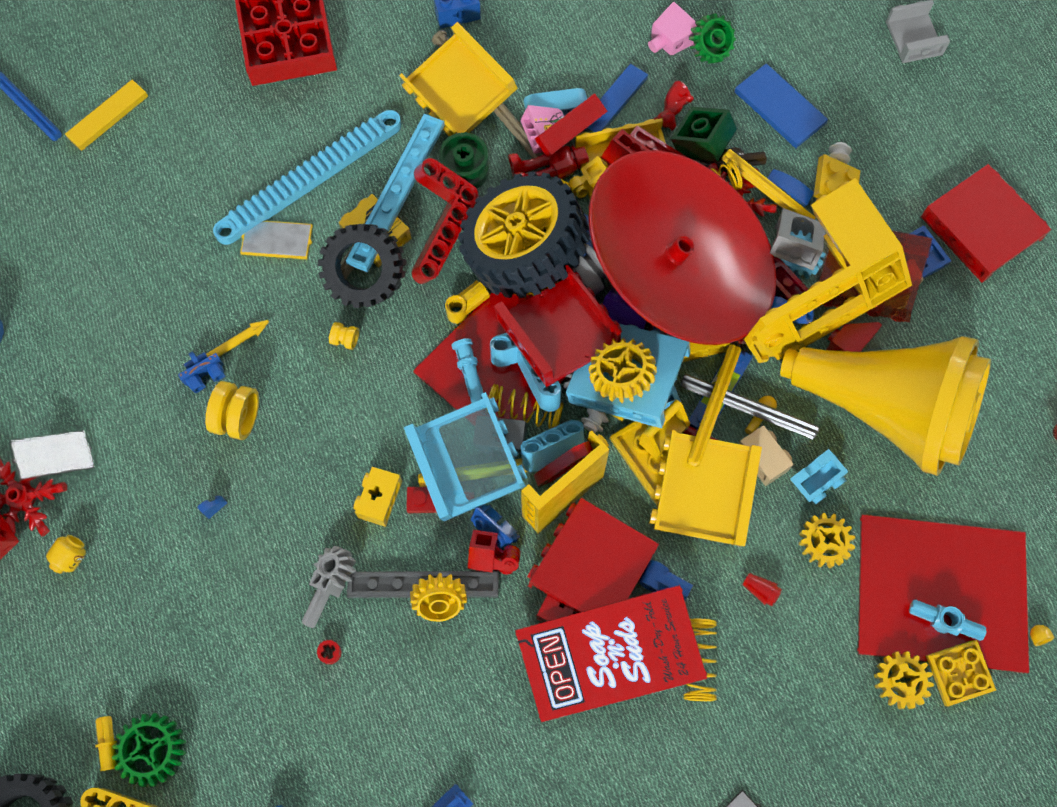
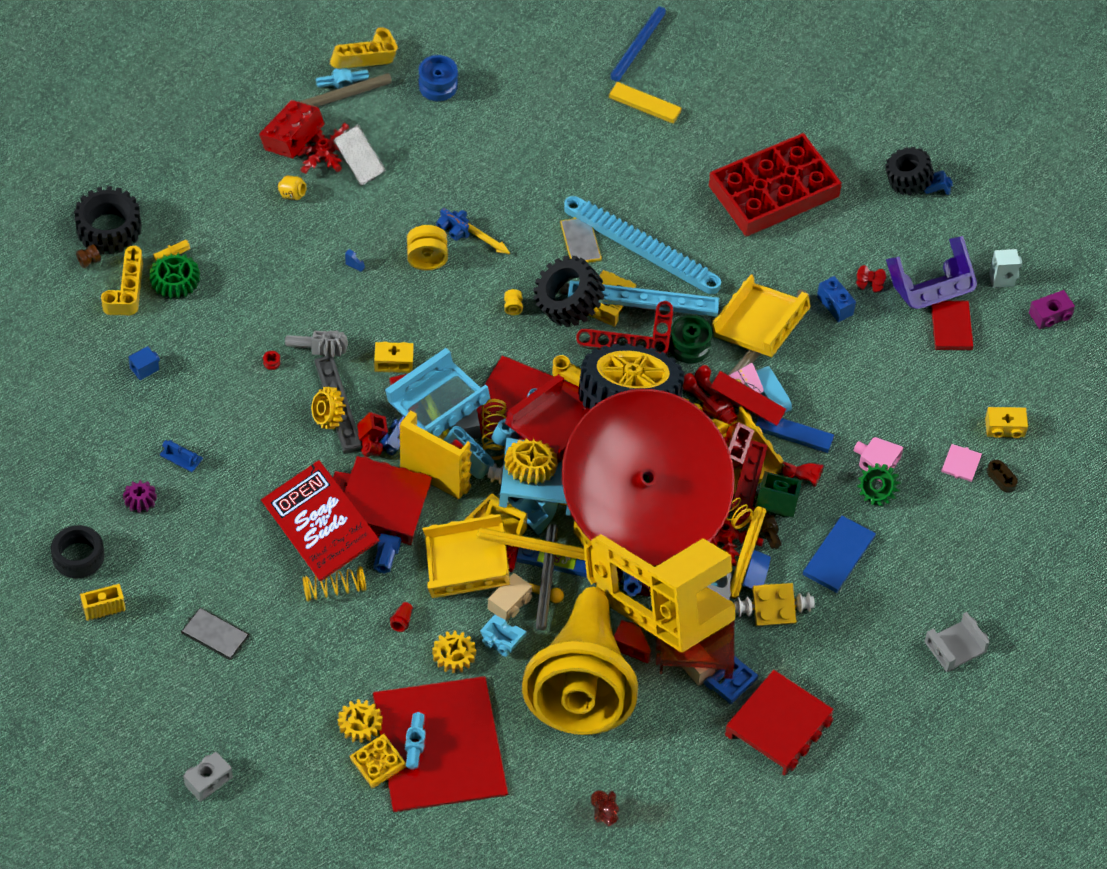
camera: 70 degrees right, 15 degrees down
(468, 364) = (517, 385): medium azure pin -> none
(1041, 635) = (424, 812): yellow hinge -> none

